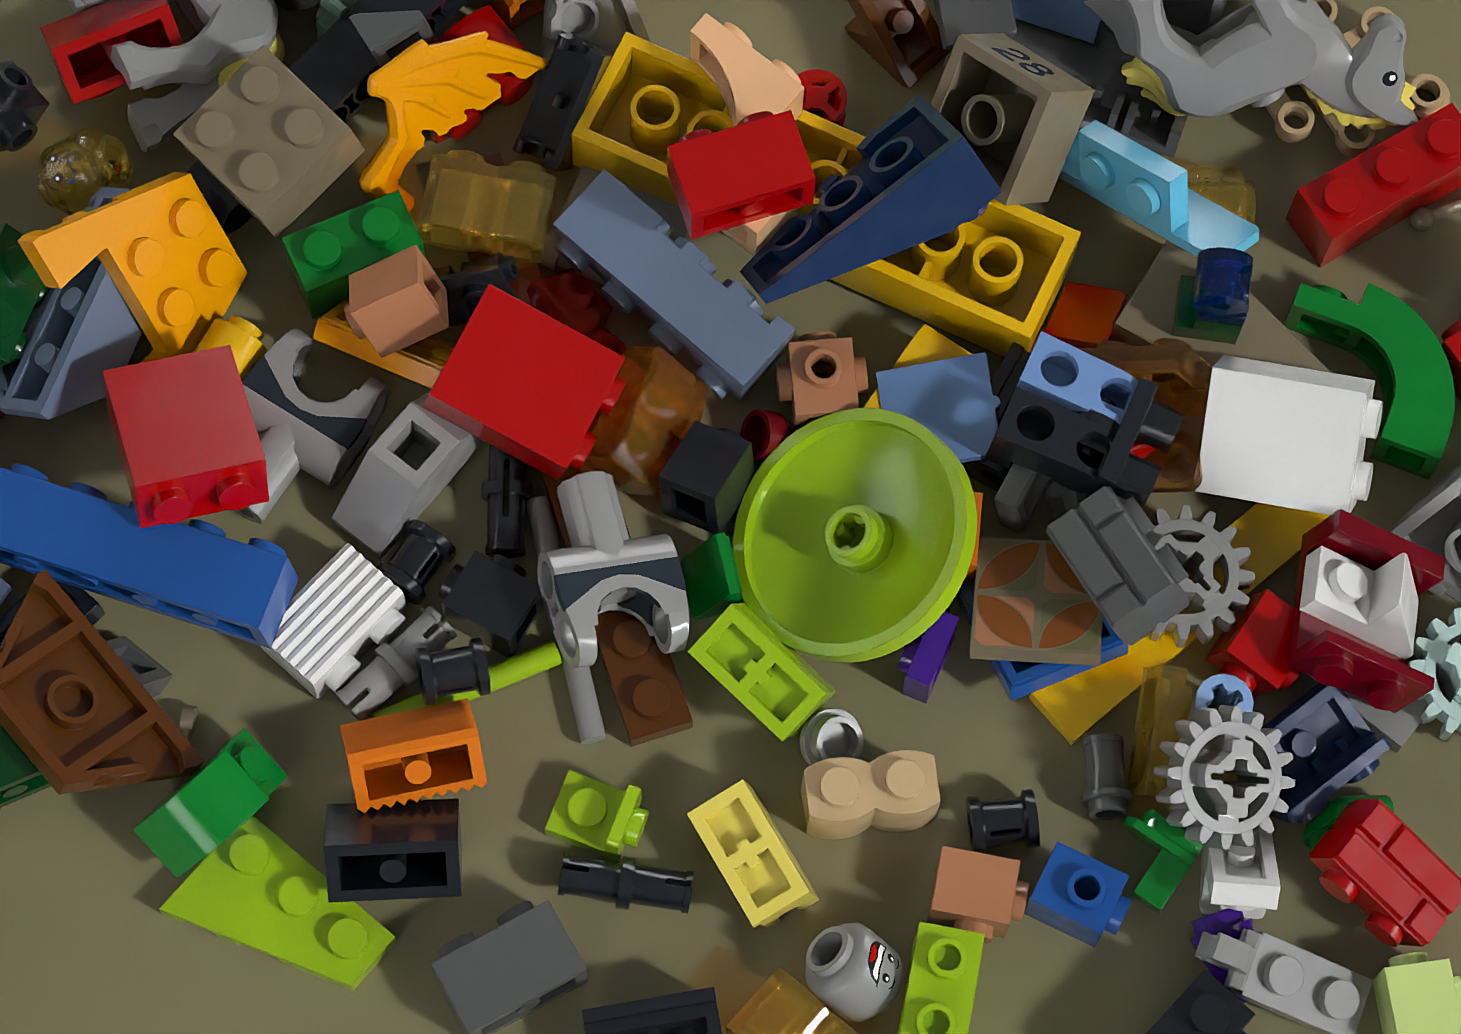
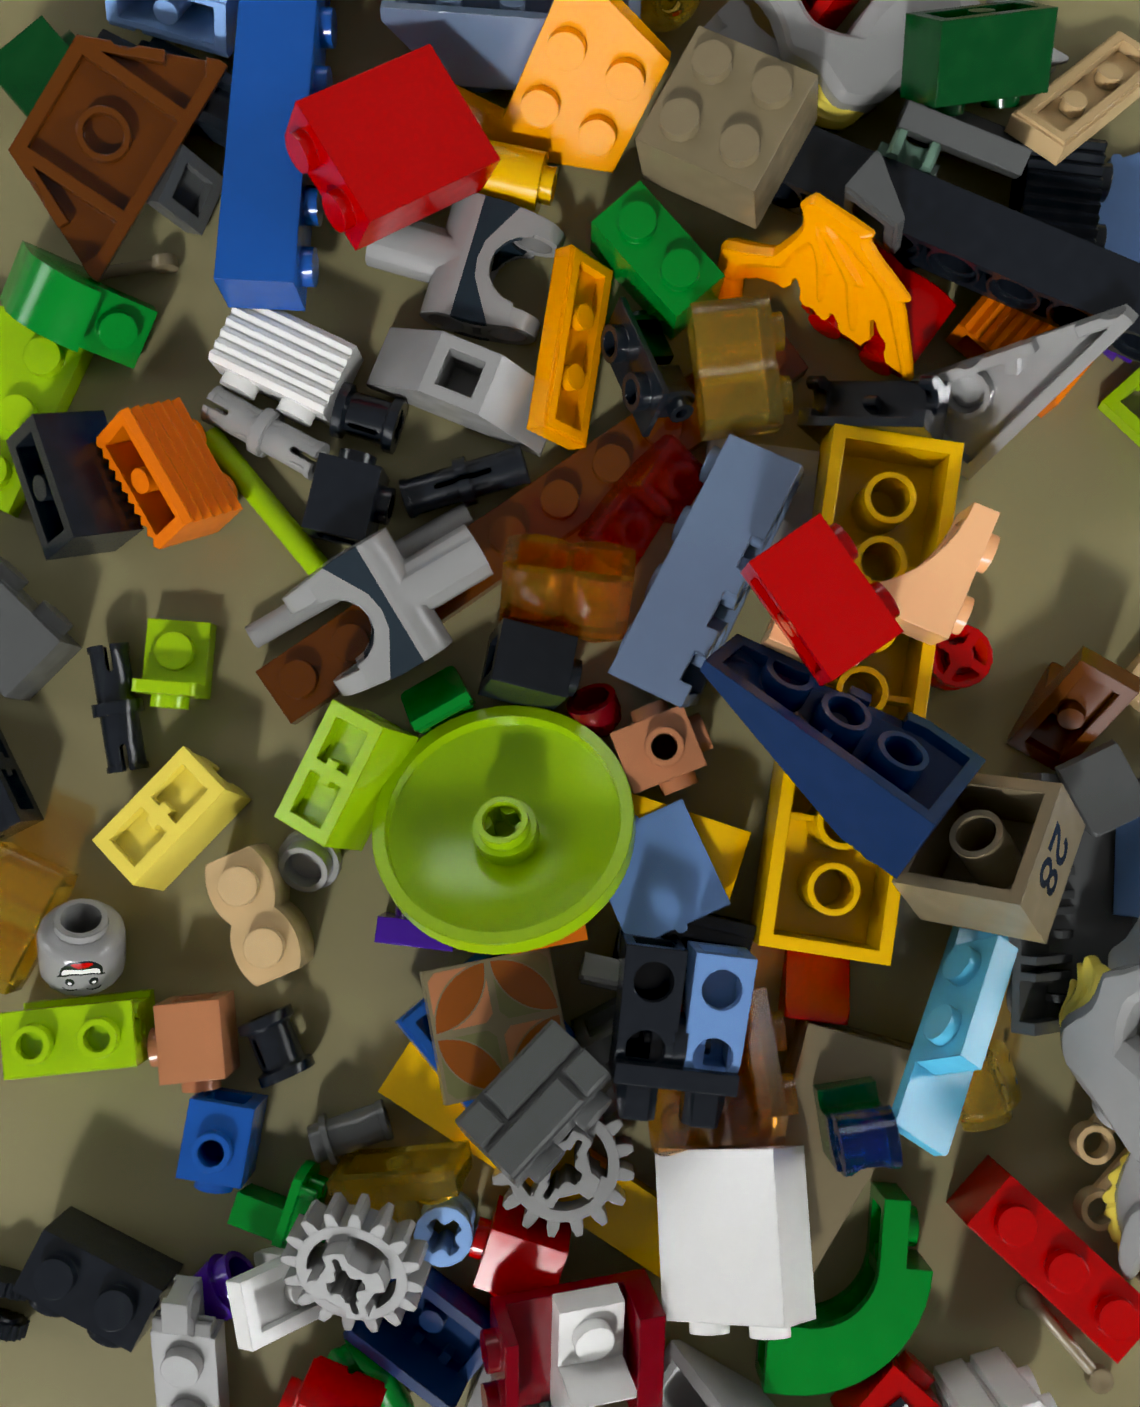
camera: 75 degrees right, 15 degrees up
(397, 302) = (599, 308): nougat brick -> none
(452, 671) = (259, 483): black bush -> none
(527, 384) = (550, 458): red brick -> none

